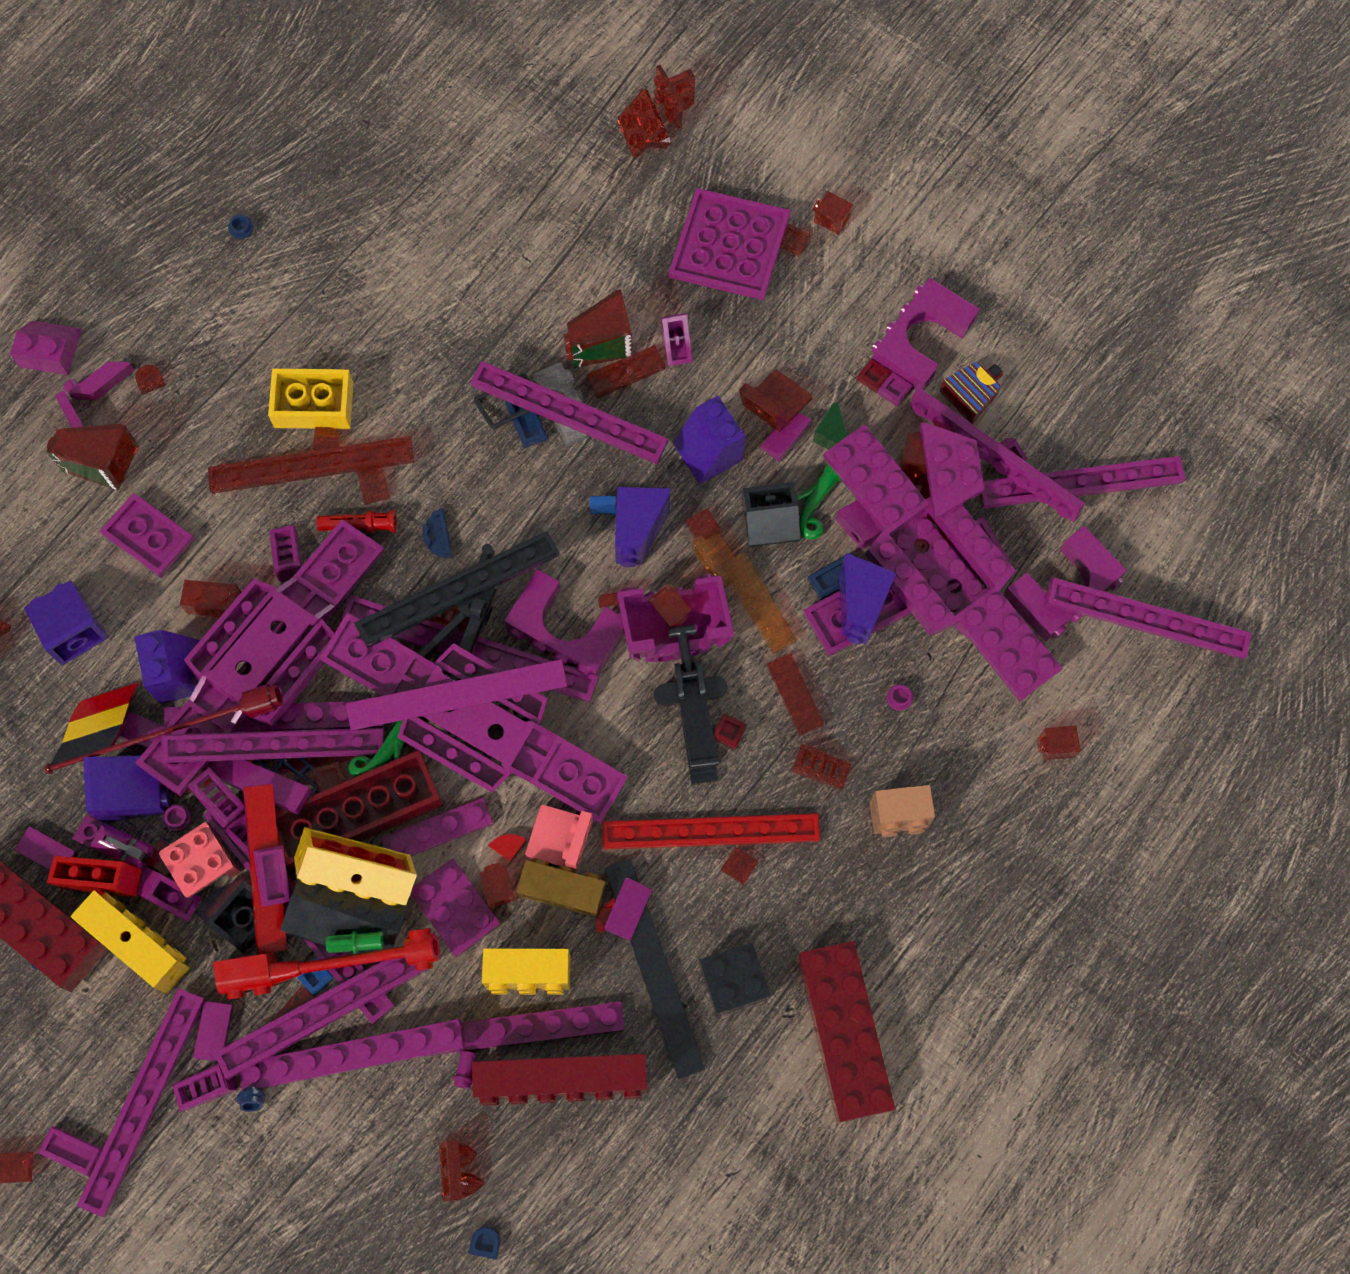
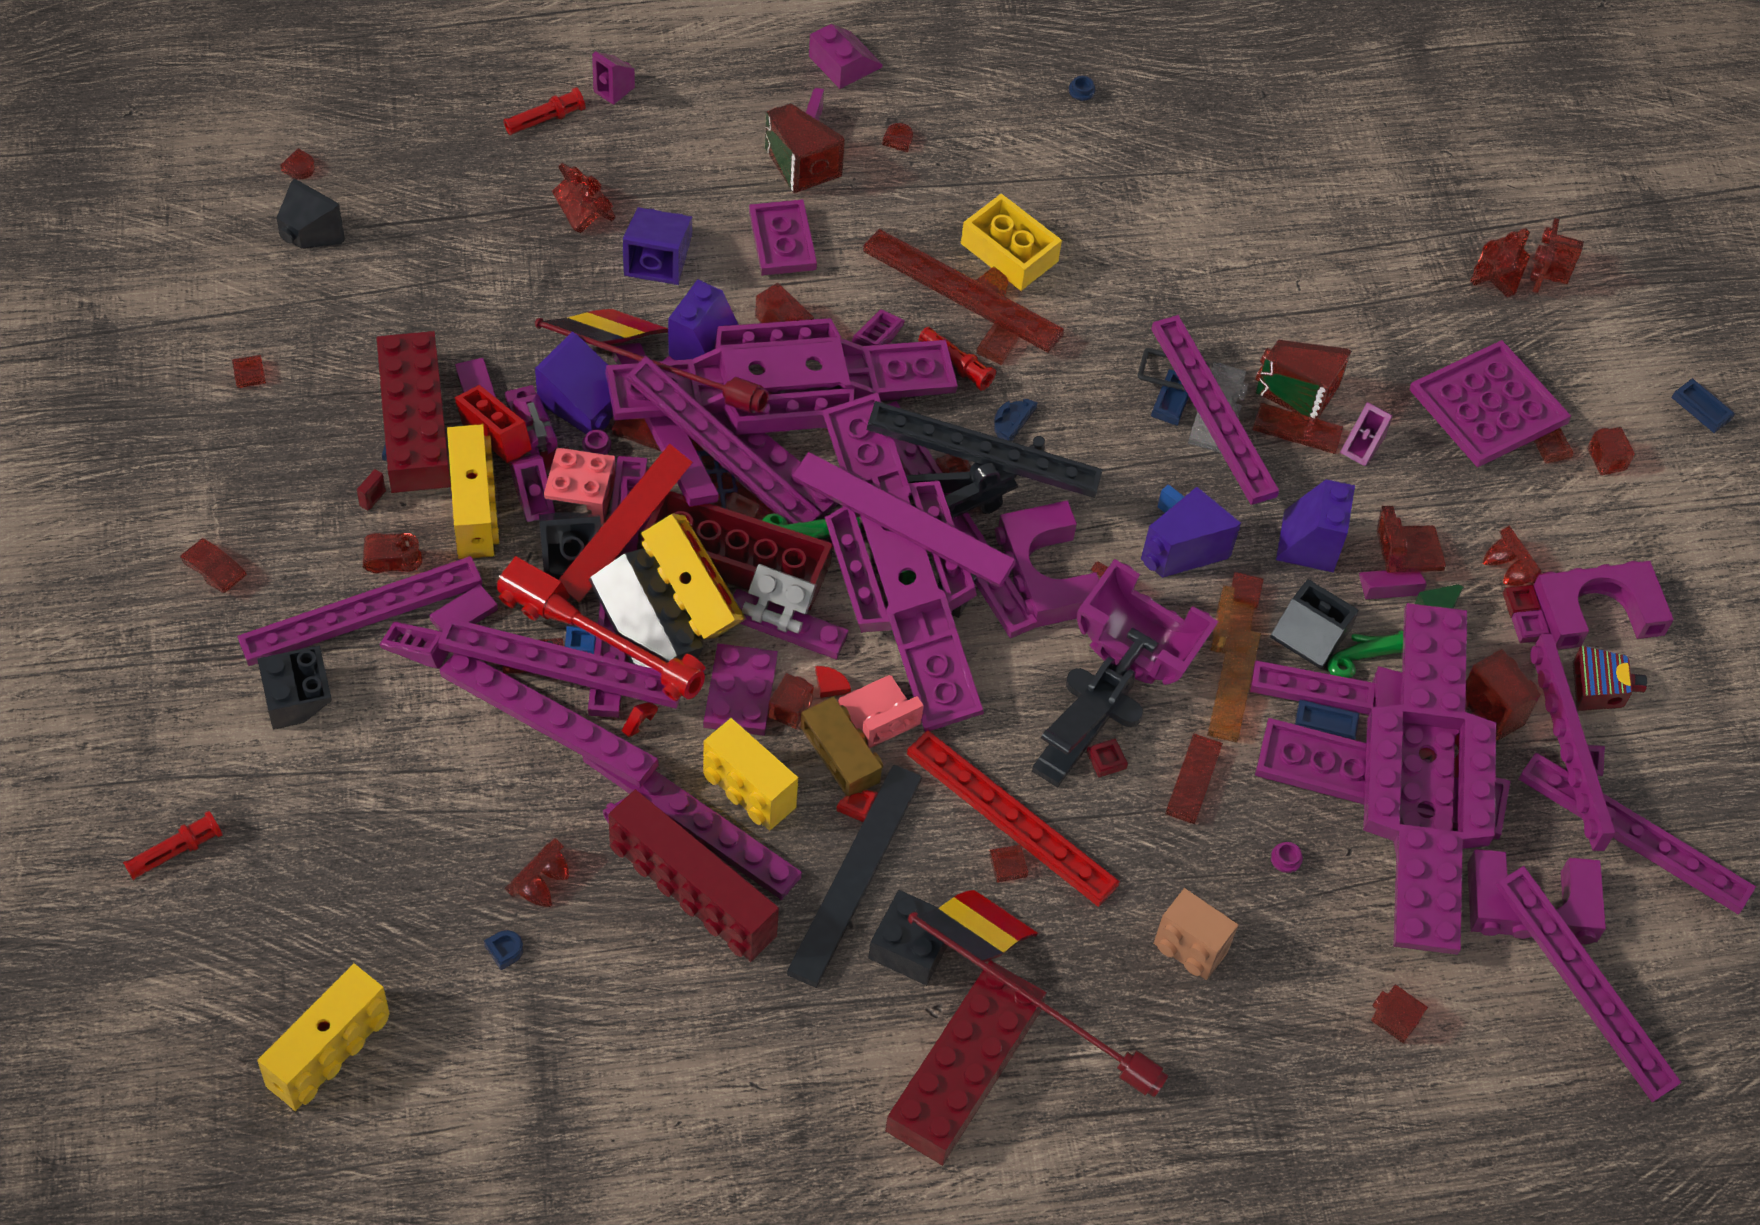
camera: 40 degrees right, 15 degrees down
(55, 1004) = (371, 490): none -> dark red tile
(70, 1151) = (272, 597): magenta tile -> none
(99, 381) = (858, 109): magenta piece -> none
(116, 1041) = (389, 551): none -> clear red piece
(156, 1204) = (294, 686): none -> black slope
(224, 790) = (630, 457): magenta slope -> none
(251, 1099) = (440, 680): dark blue plate -> none
(272, 875) = (624, 530): magenta tile -> none
(354, 942) = (636, 631): green axle -> none
(410, 996) = (637, 716): none -> red tile
(418, 817) = (783, 590): none -> light grey plate
(627, 909) = (879, 805): magenta slope -> none
(670, 606) = (1151, 612): clear red brick -> none
(774, 941) = (985, 932): none -> flag
(808, 560) = (1312, 687): none -> magenta plate
(808, 772) = (1162, 833): clear red slope -> none
(835, 345) = (1508, 549): none -> clear red tile
(856, 125) = (1703, 405): none -> dark blue tile
(862, 595) = (1329, 742): dark purple slope -> none
(951, 468) = (1512, 704): magenta wing -> none

